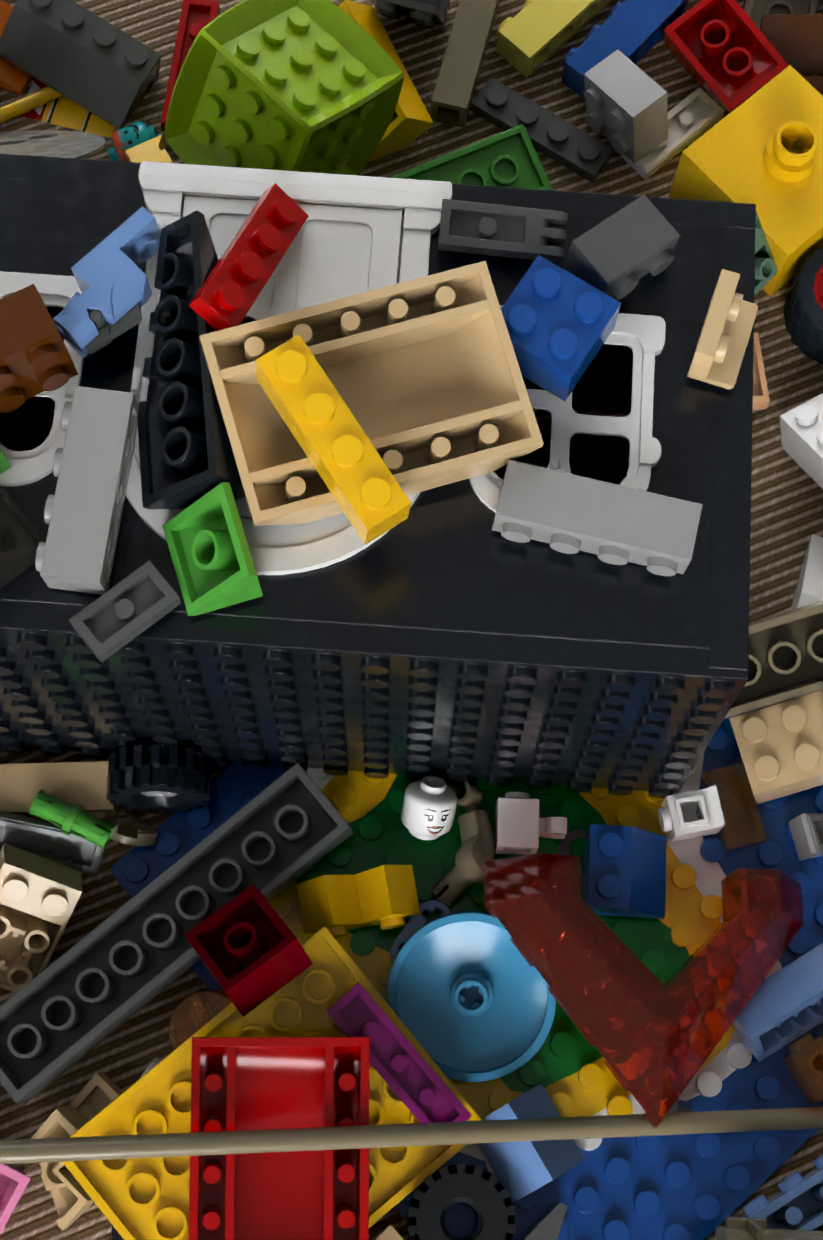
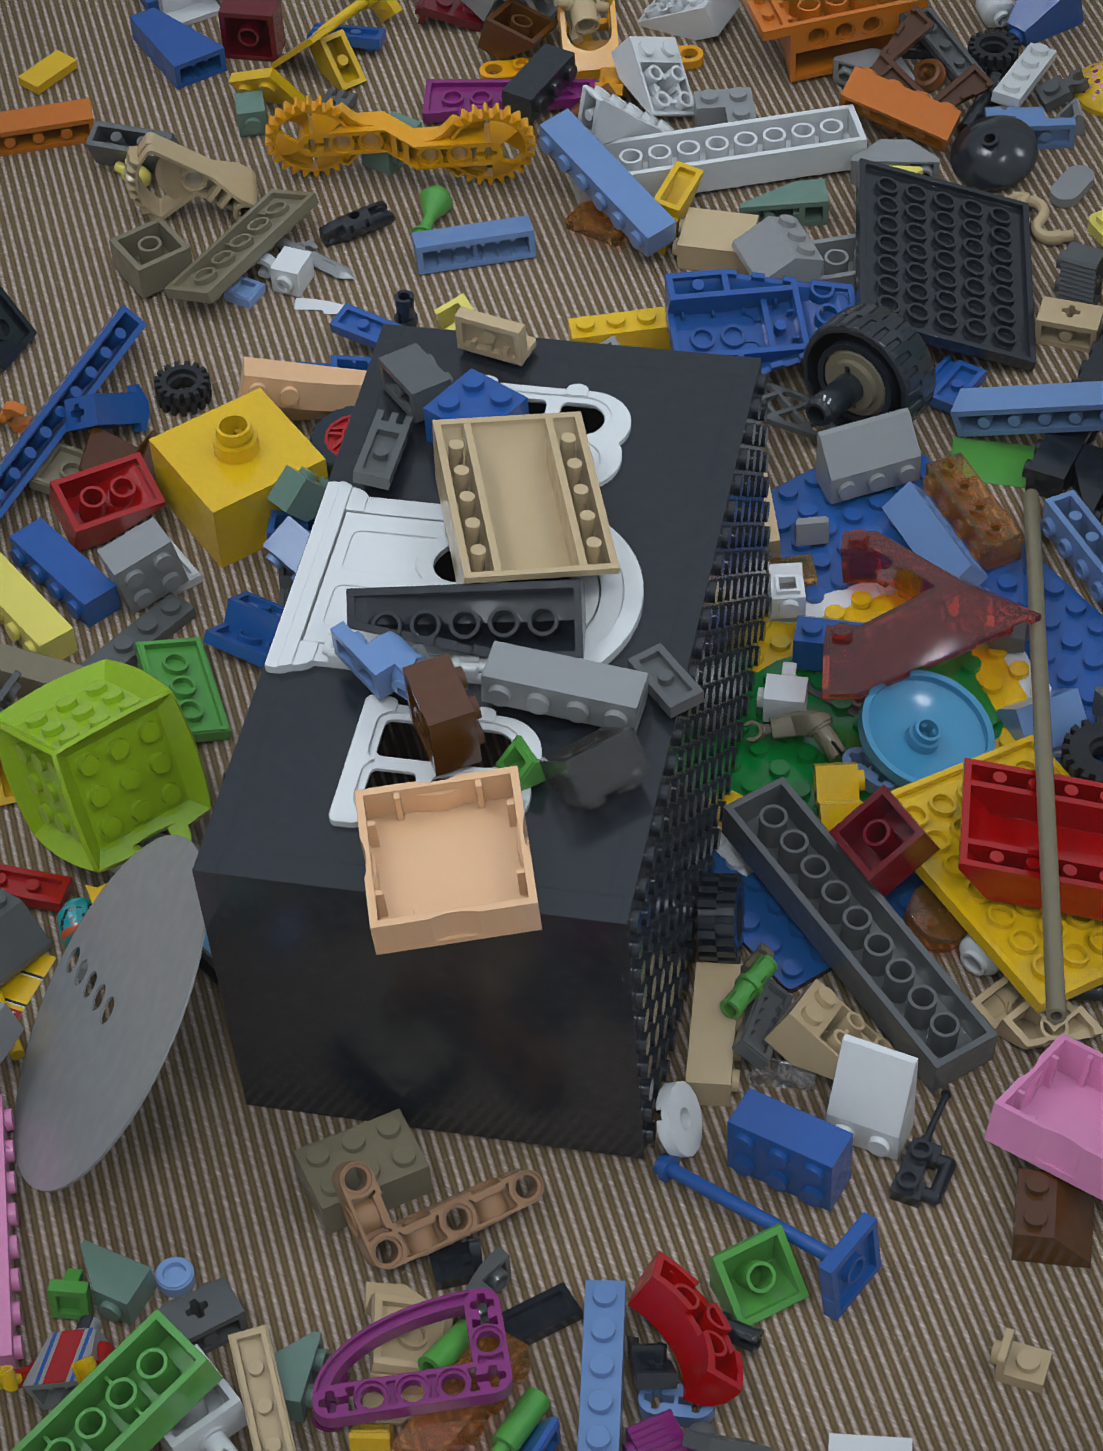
camera: 75 degrees left, 25 degrees down
(212, 553) = (628, 612): bright green slope -> none
(249, 260) = (397, 572): red plate -> none
(332, 439) = (568, 502): yellow brick -> none
(397, 1059) = (944, 781): magenta plate -> none
(428, 808) = (764, 749): white head -> none
(597, 518) = (633, 410): light grey brick -> none

